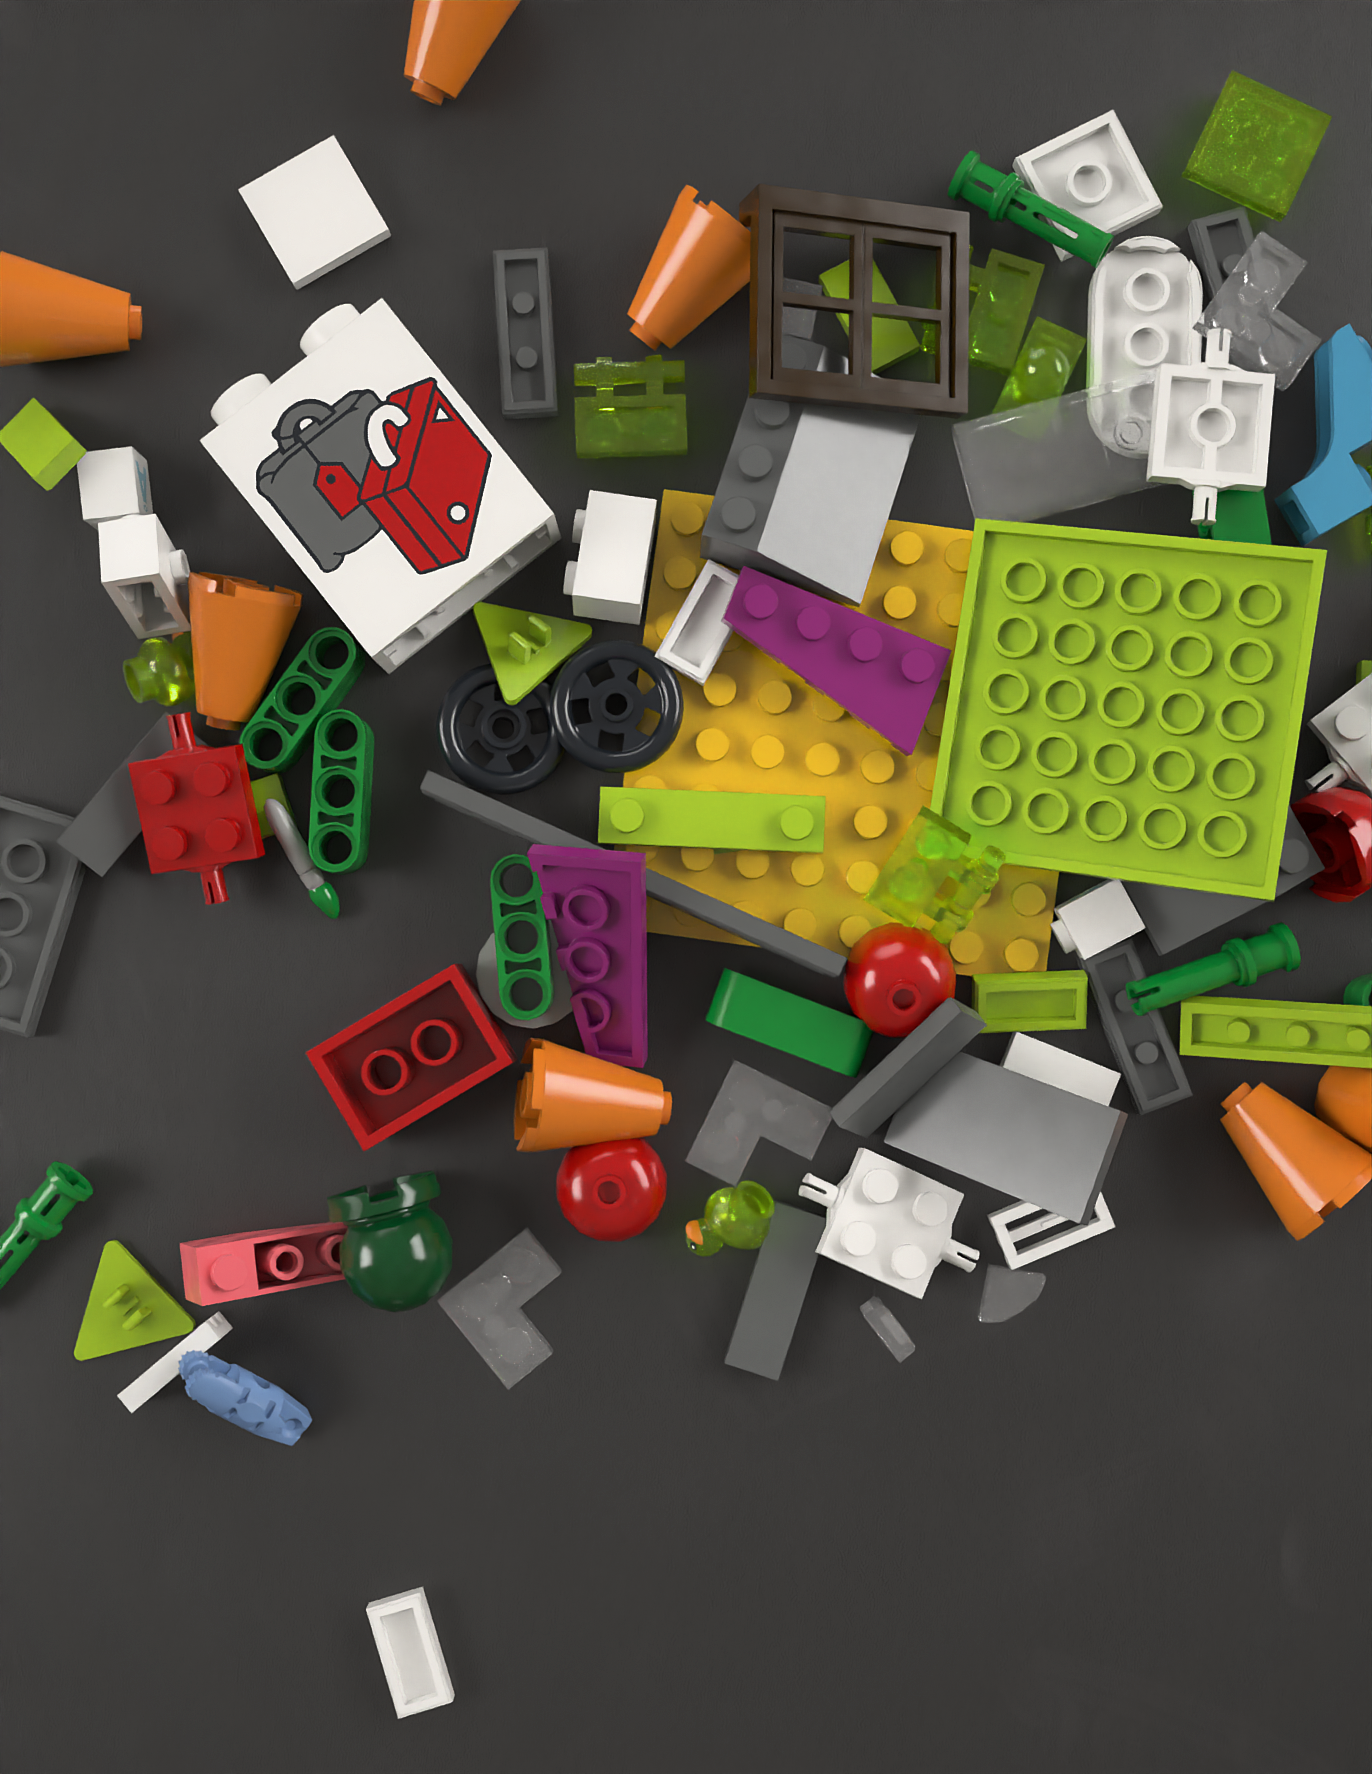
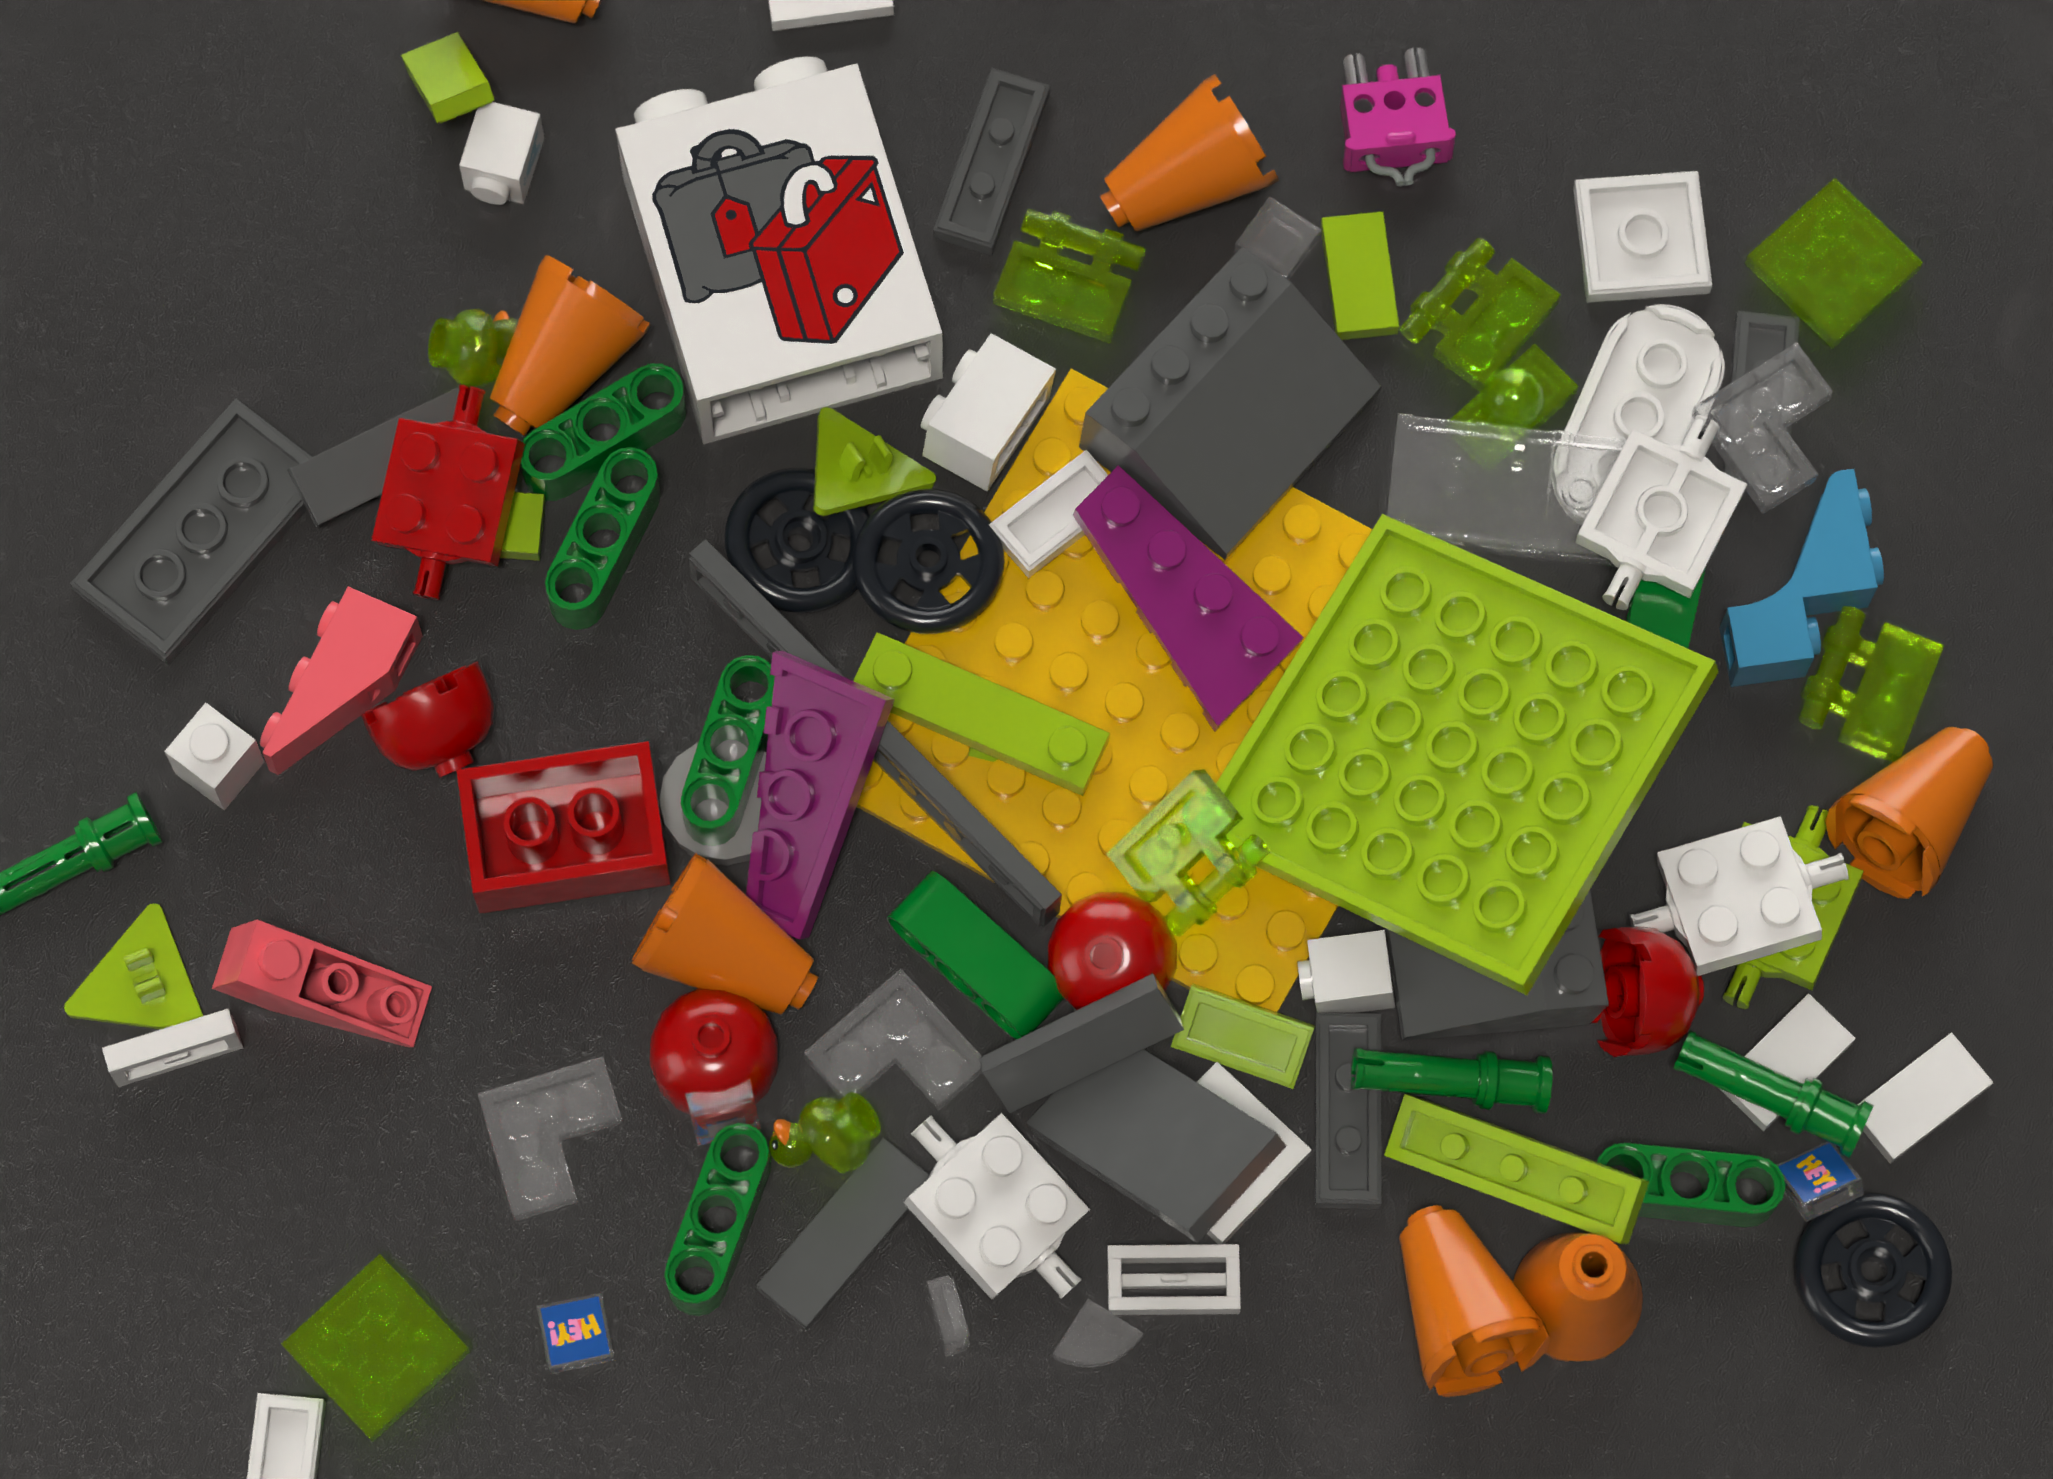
camera: 20 degrees right, 15 degrees down
(102, 1108) = (214, 756): none -> white brick
(145, 575) = (500, 243): white brick -> none
(182, 984) = (351, 670): none -> coral slope
(243, 1398) = (233, 1110): medium blue hinge -> none
(269, 1007) = (434, 722): none -> red cylinder
(320, 891) = (536, 631): light grey piece -> none
(394, 1243) = (461, 1007): dark green tile -> none
(444, 1537) = (375, 1348): none -> clear neon green tile
(596, 1456) = (575, 1333): none -> tile
(642, 1238) = (716, 1110): none -> clear tile
(666, 1351) = (715, 1188): none -> green beam
(846, 159) = (1394, 119): none -> dark pink piece
(863, 222) = (1379, 177): dark brown window -> none
(1008, 190) = (1542, 219): green pin -> none

